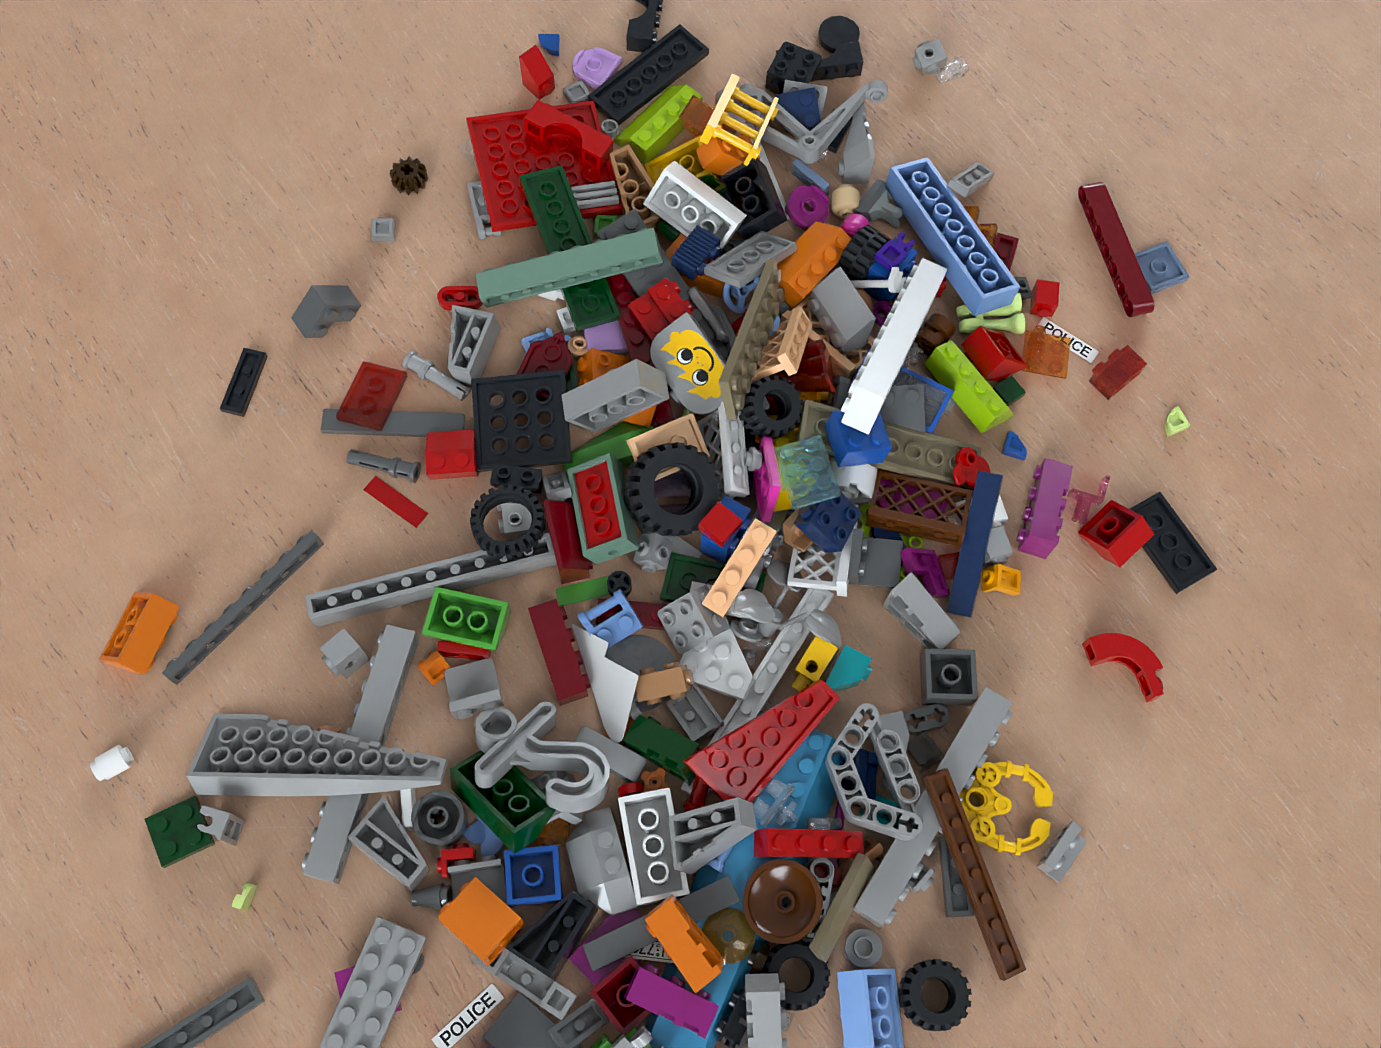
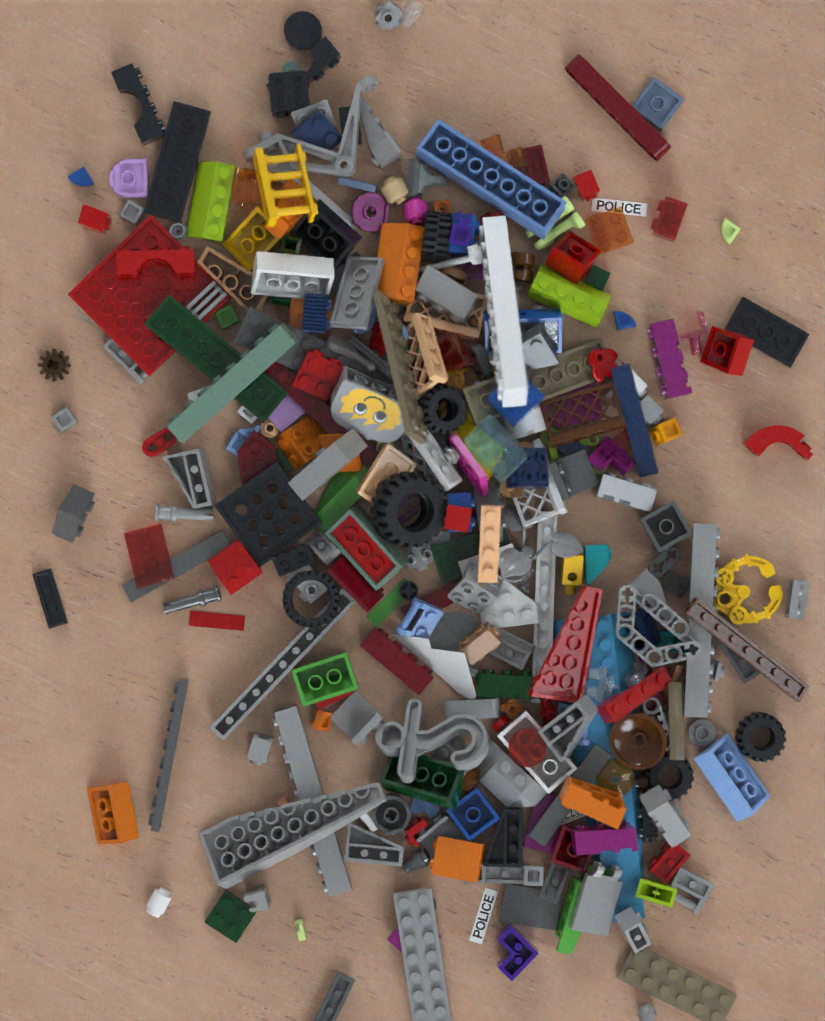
camera: 25 degrees left, 20 degrees up
(644, 831) = (527, 747): none -> clear red tile
(971, 179) = (480, 115): light grey tile -> none

